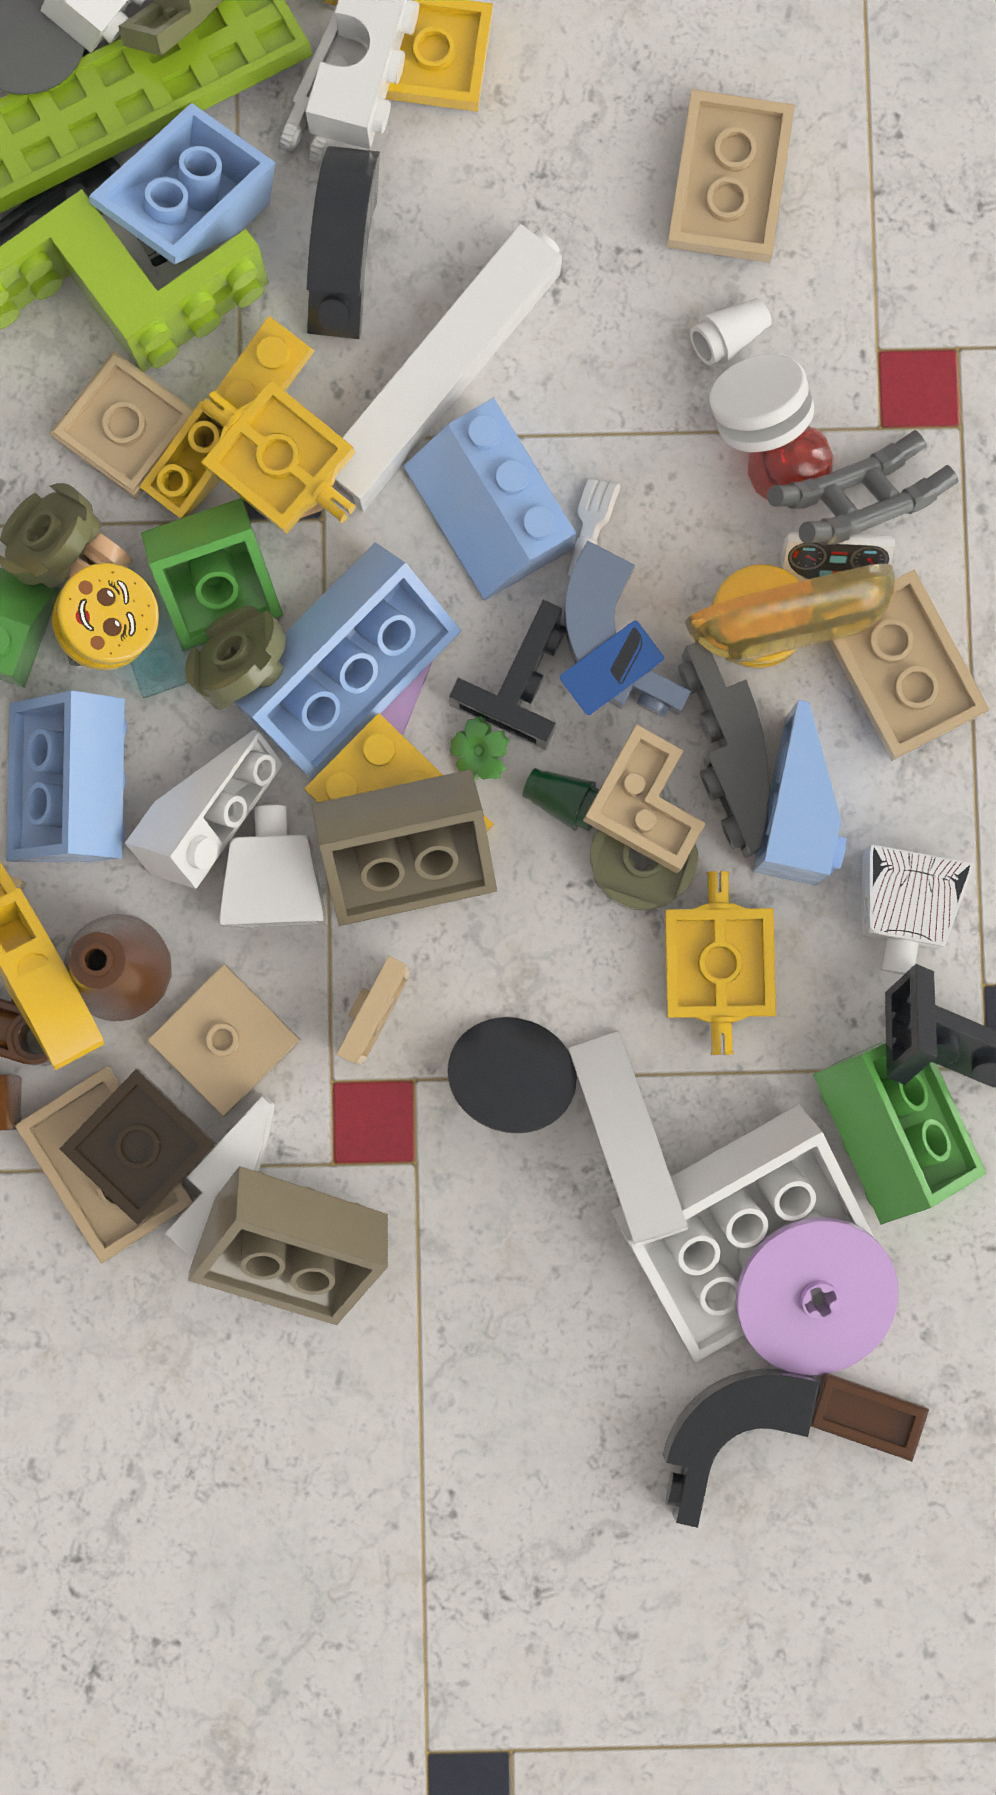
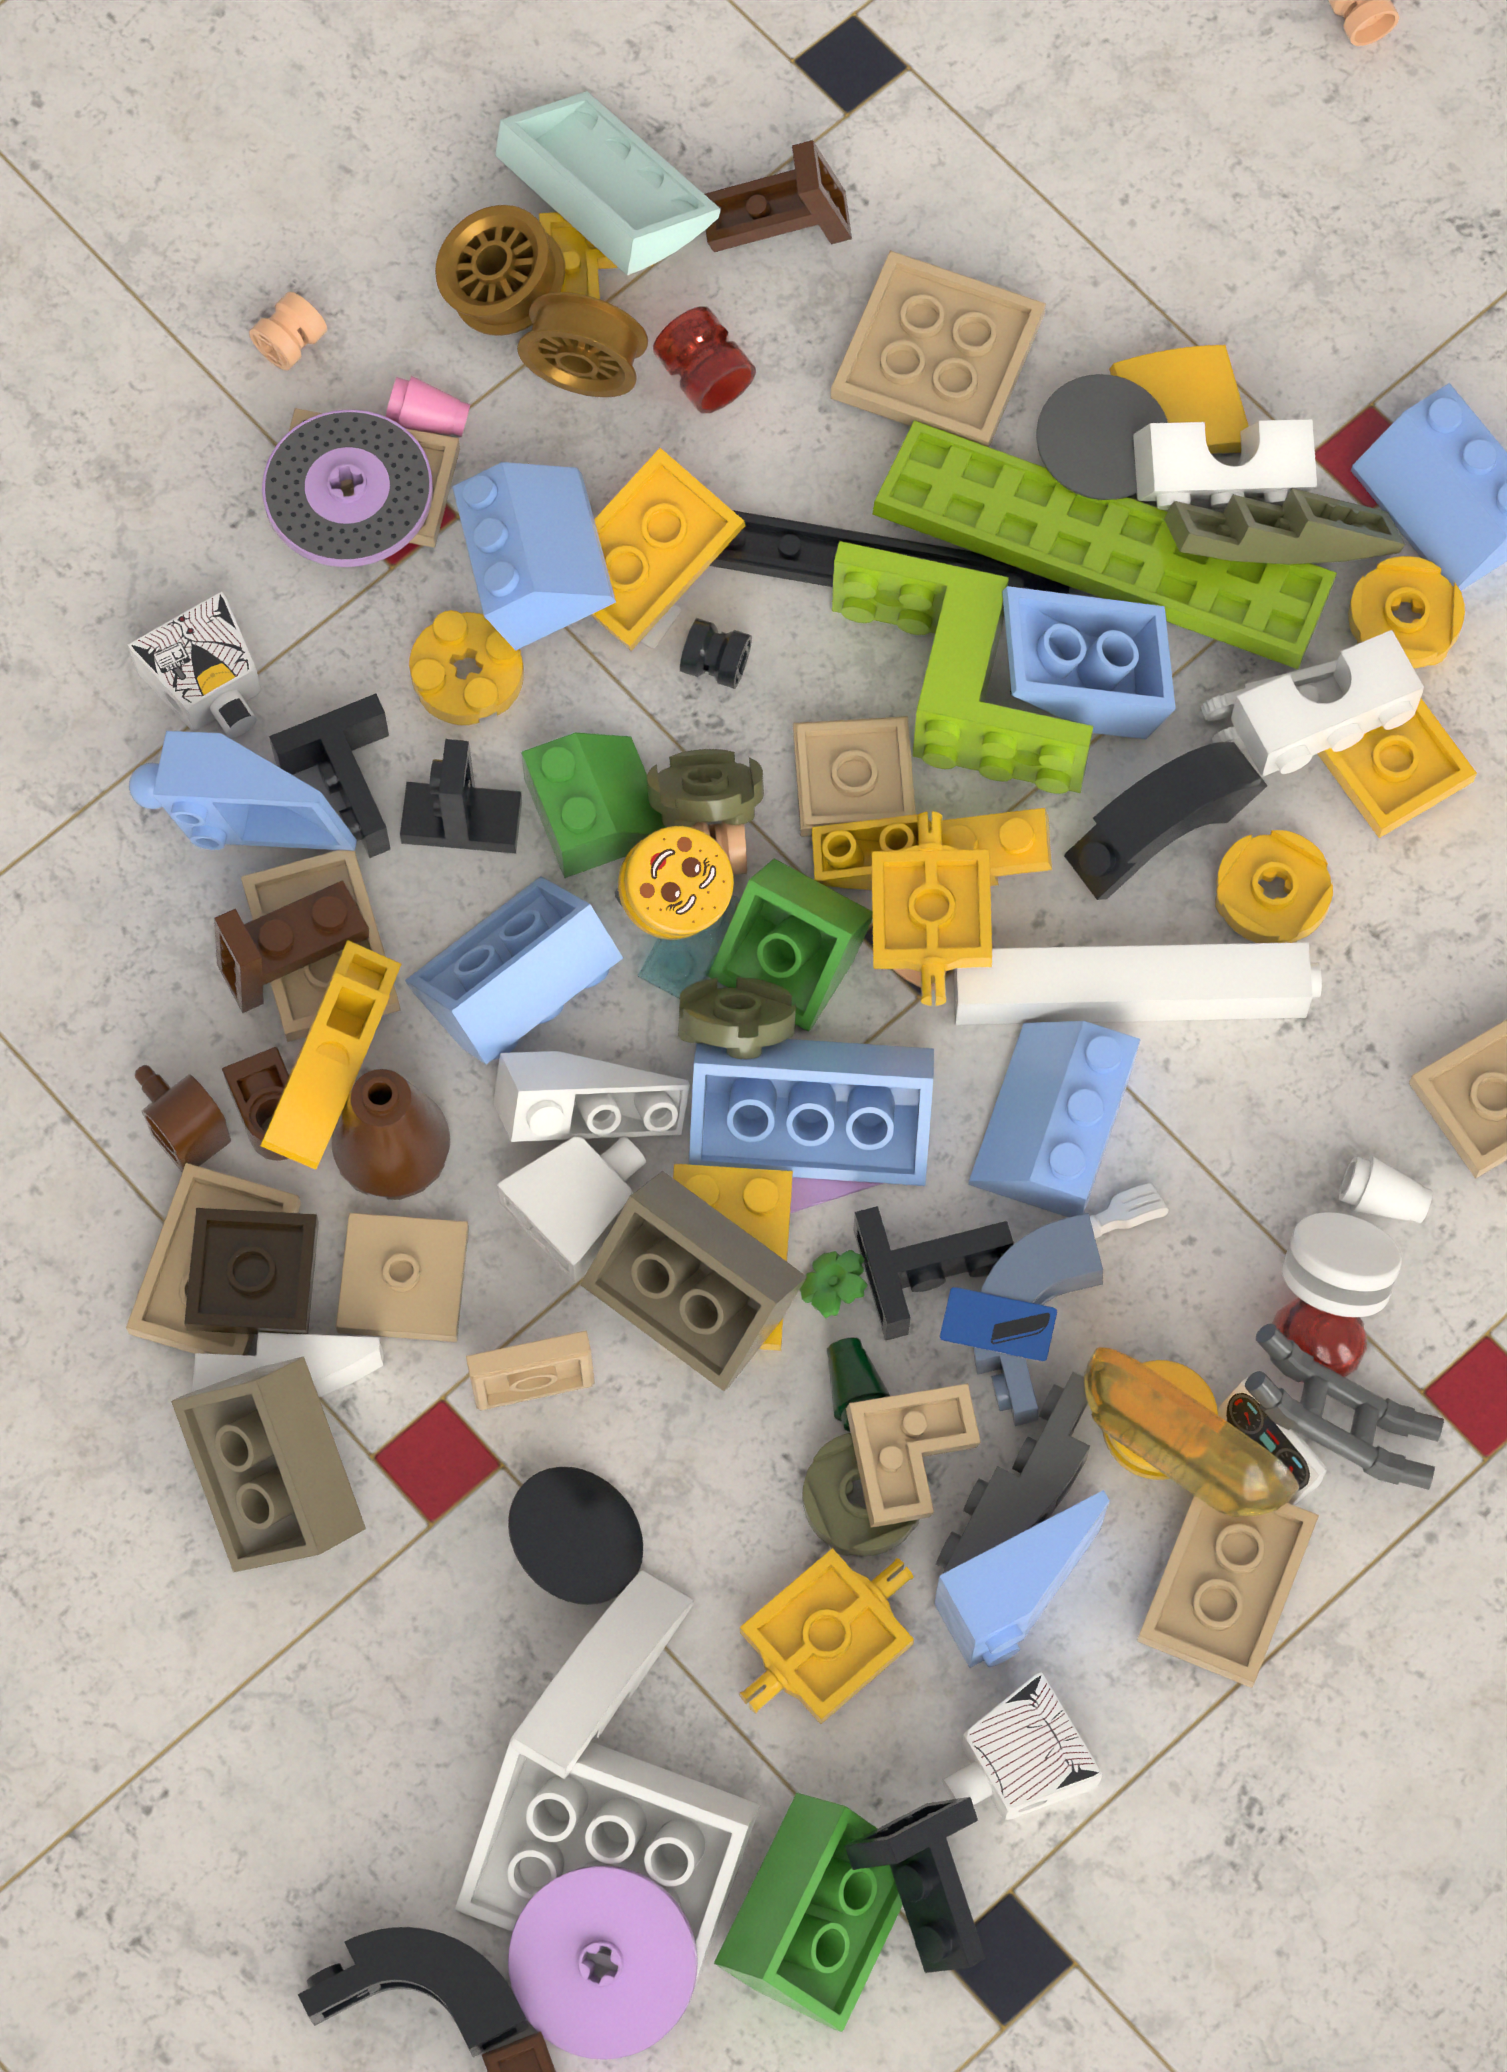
camera: 50 degrees right, 15 degrees down
(471, 188) = (1265, 857): none -> yellow plate

